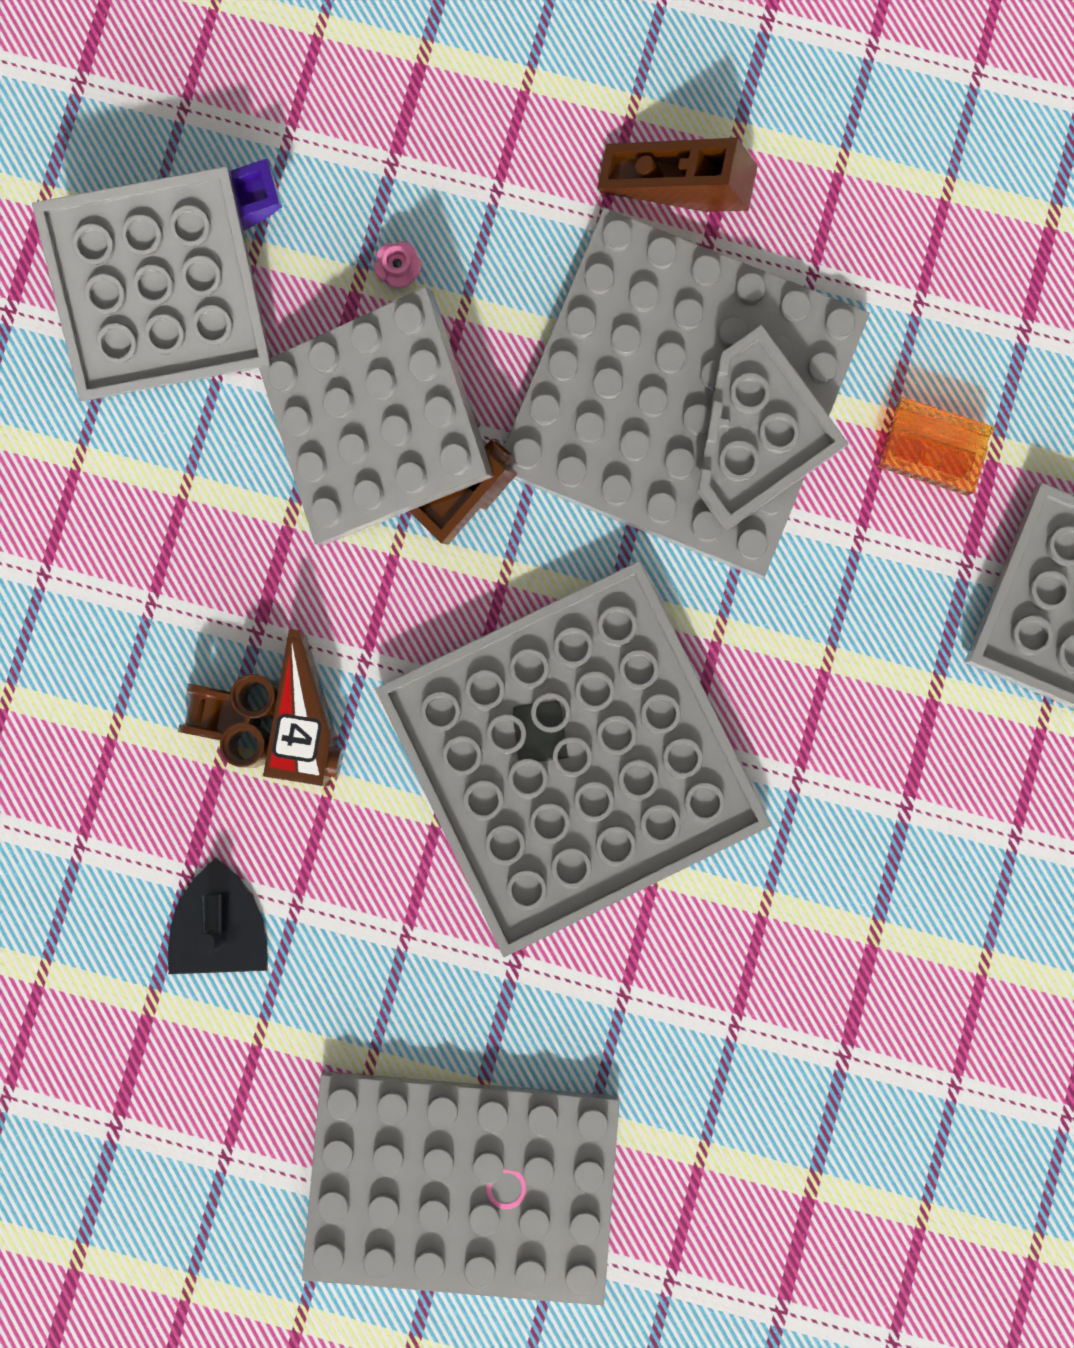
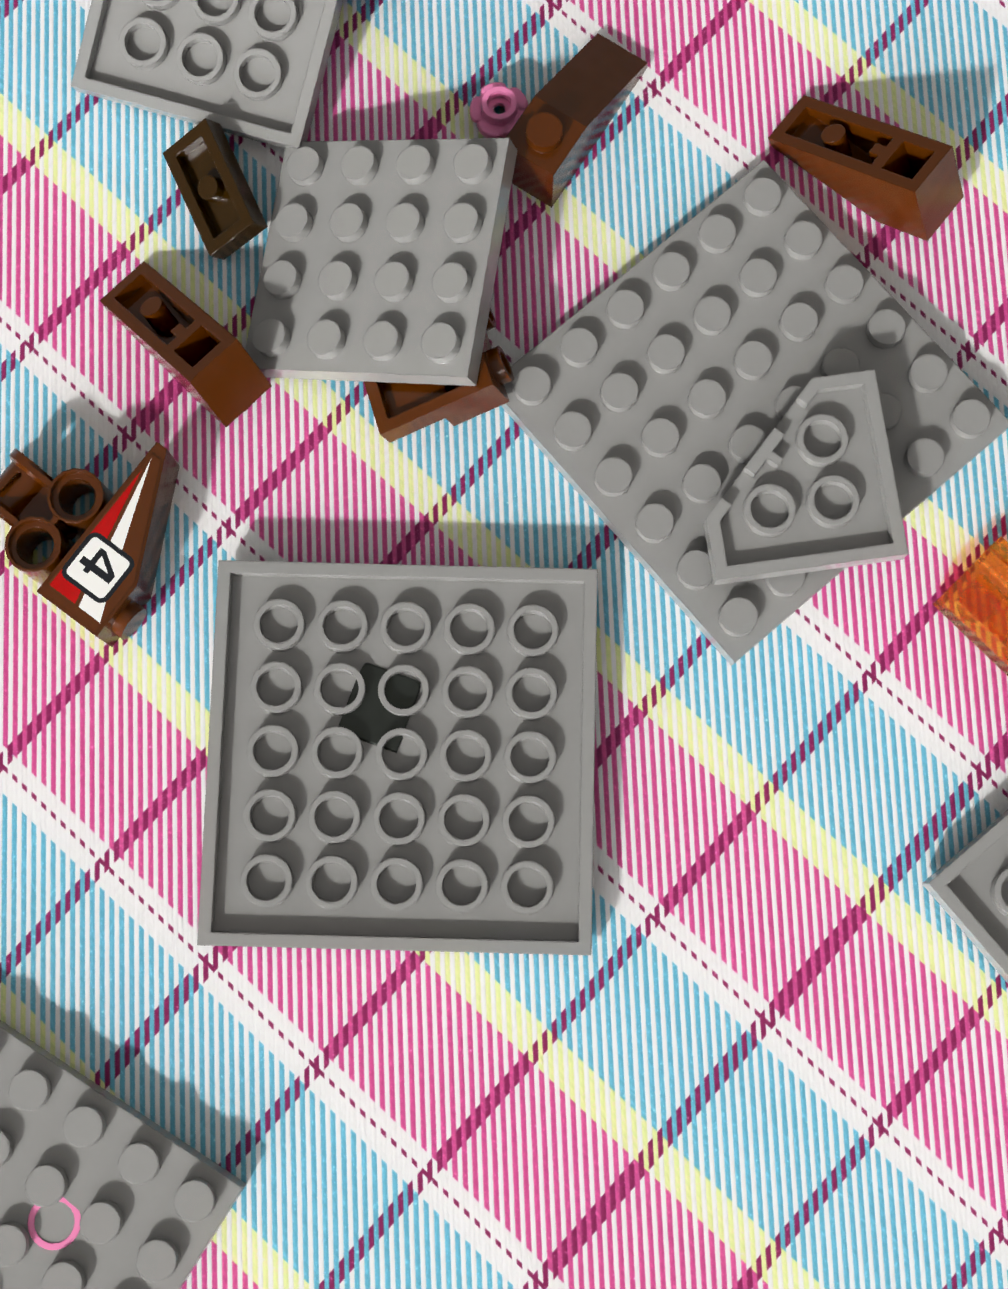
camera: 30 degrees right, 5 degrees down
(225, 424) = (214, 189): none -> dark brown plate
(266, 545) = (187, 343): none -> reddish brown slope
(452, 240) = (571, 116): none -> reddish brown slope

